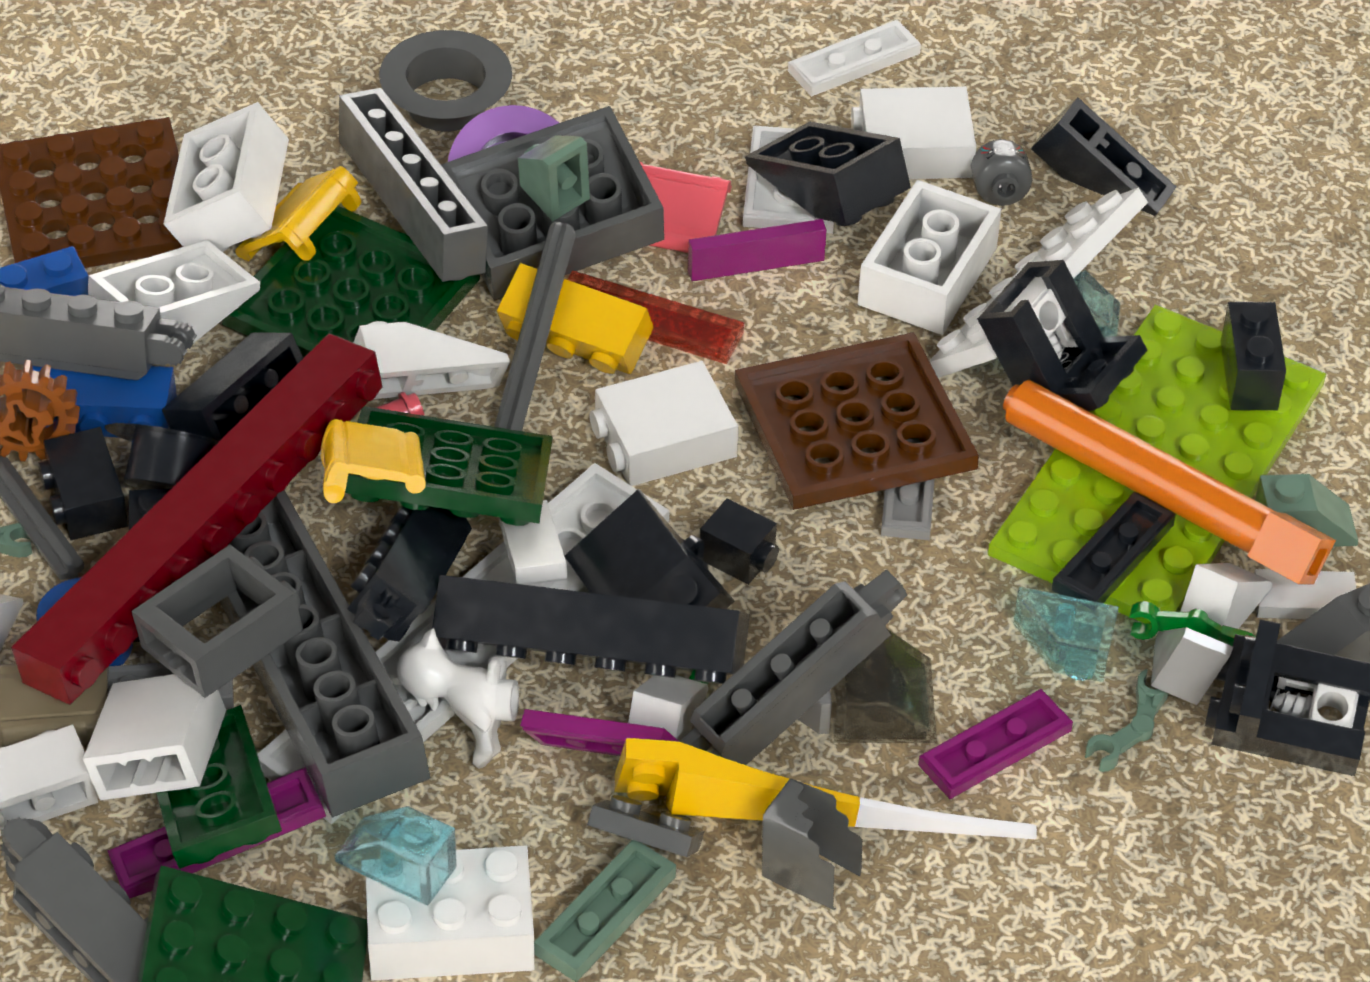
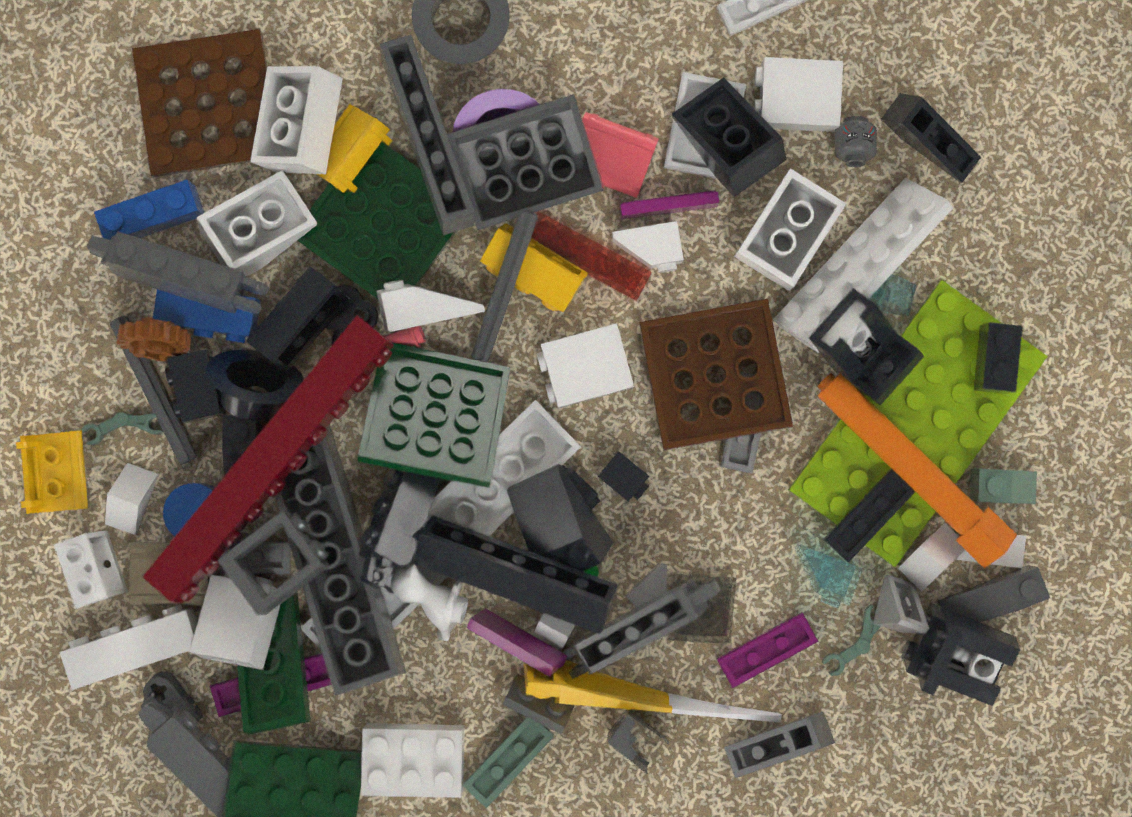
camera: 15 degrees right, 40 degrees up
(371, 453) = (380, 438): yellow piece -> none
(402, 852) = (379, 747): clear light blue slope -> none
(535, 550) = (486, 505): white tile -> none
(556, 174) = (524, 167): sand green slope -> none
(737, 288) = (652, 245): none -> white slope
(1043, 847) = (779, 744): none -> dark grey slope
(1166, 620) = (882, 575): green piece -> none

